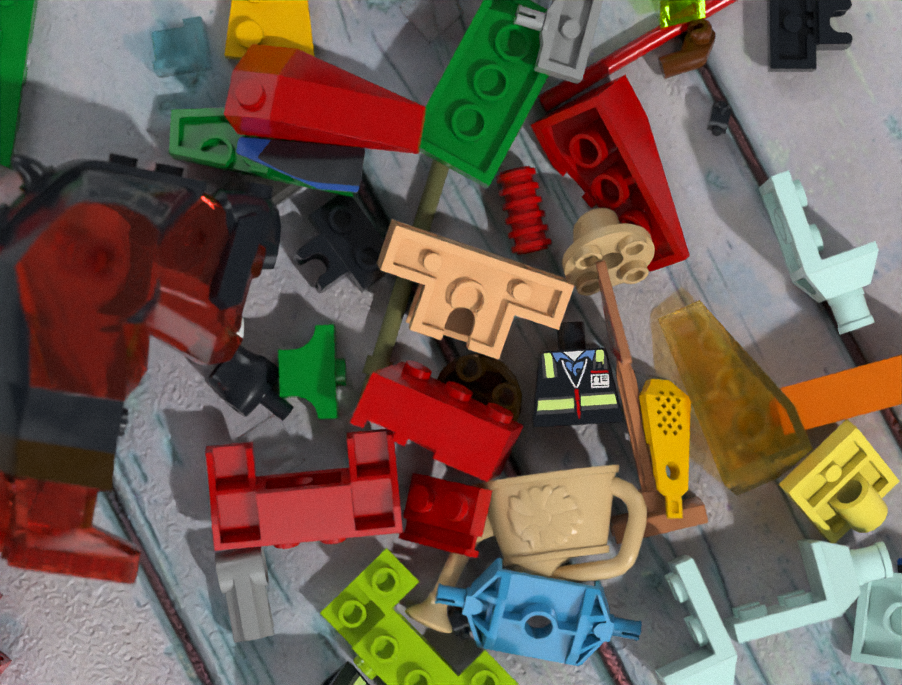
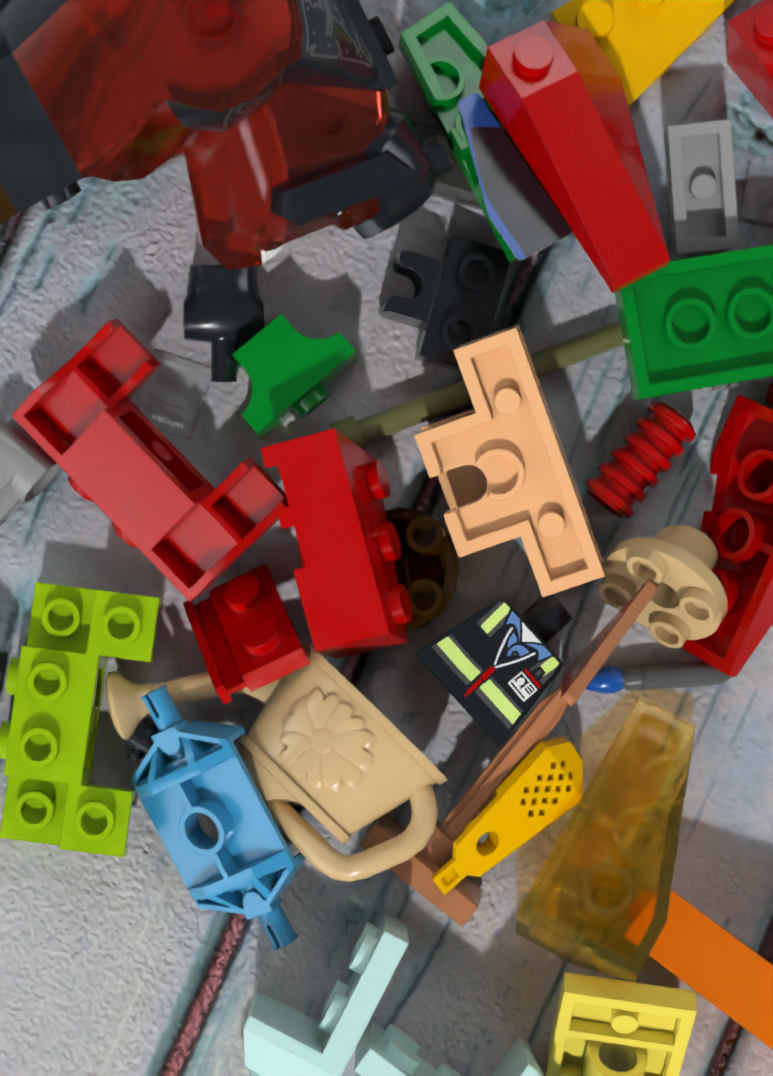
camera: 50 degrees right, 0 degrees up
(395, 51) = (701, 186): none -> light grey plate
(653, 301) = (656, 676): none -> dark grey piece

